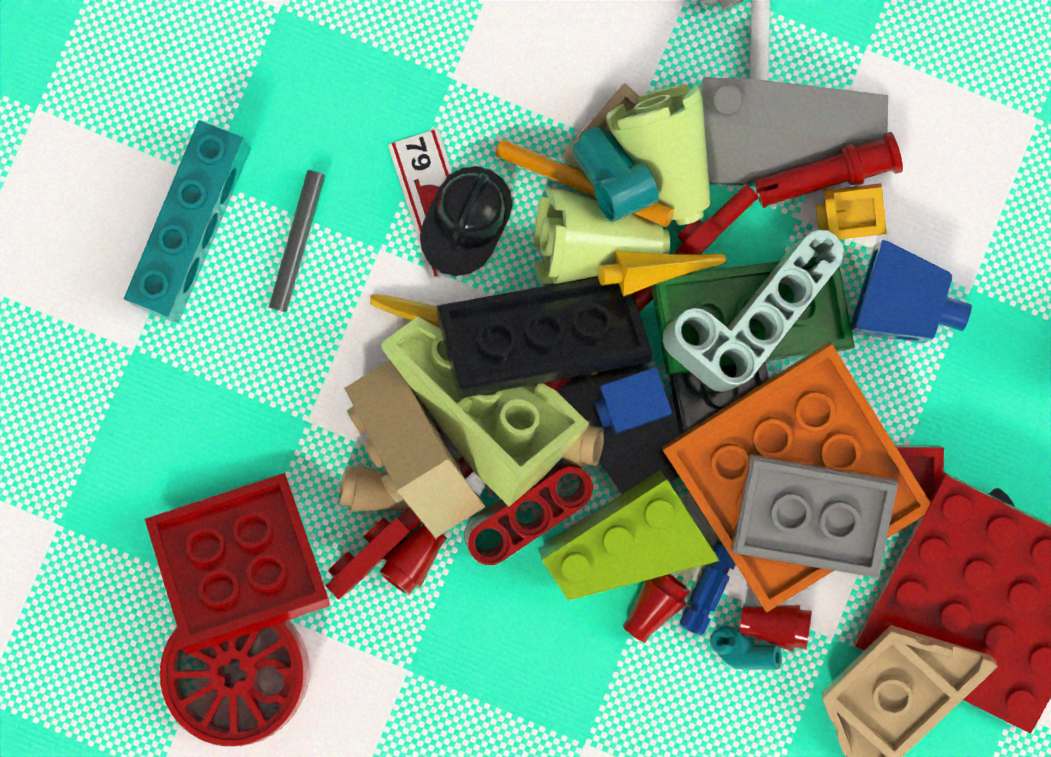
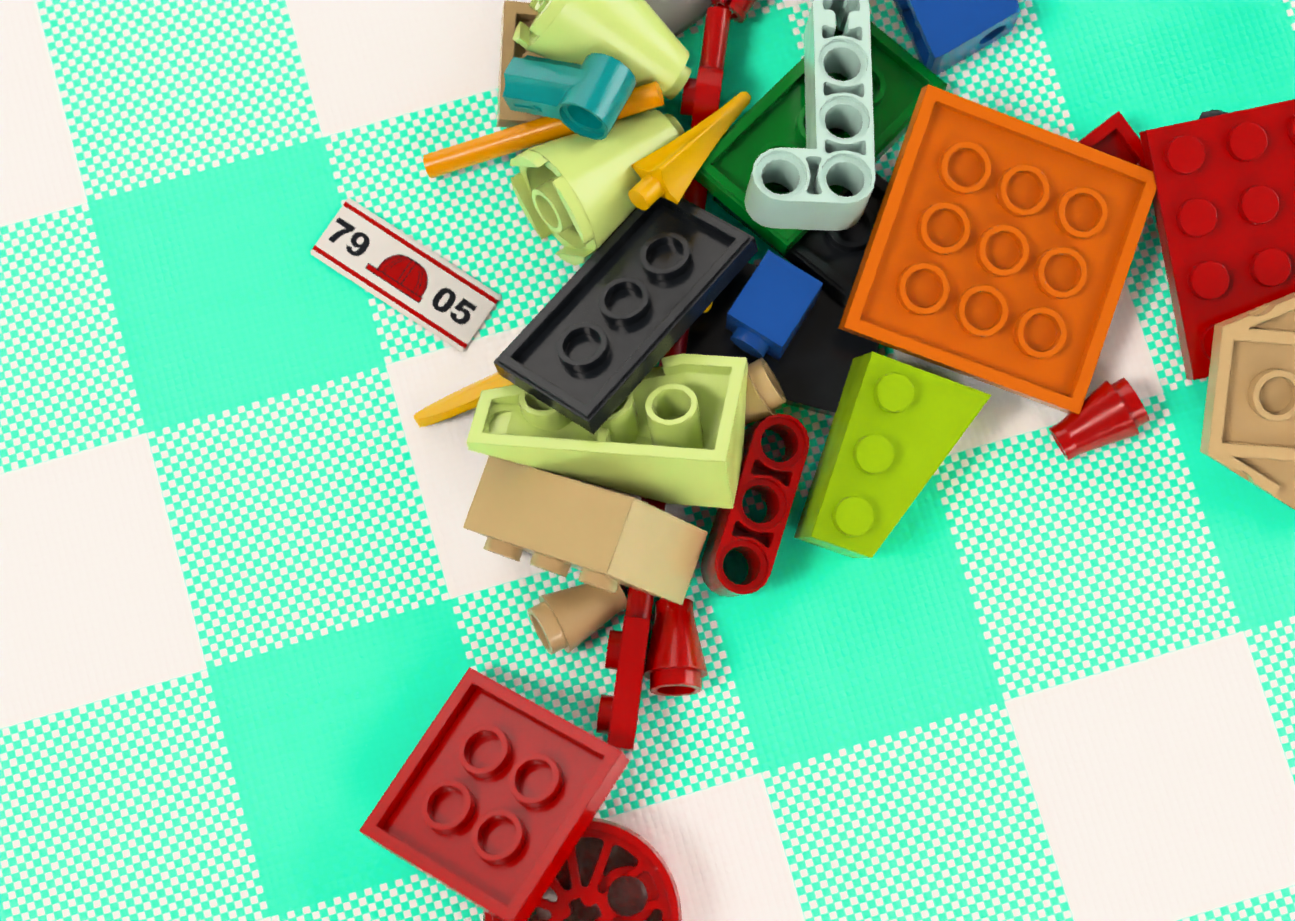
camera: 35 degrees left, 5 degrees down
(188, 221) = (161, 487): teal brick -> none
(296, 241) = (292, 422): dark grey bar -> none
(465, 220) = (451, 267): black piece -> none
(655, 605) = (961, 499): red cone -> none
(708, 592) = (1003, 445): blue axle -> none
(742, 653) = (1088, 478): teal arm -> none
(814, 515) = (1049, 274): light grey tile -> none

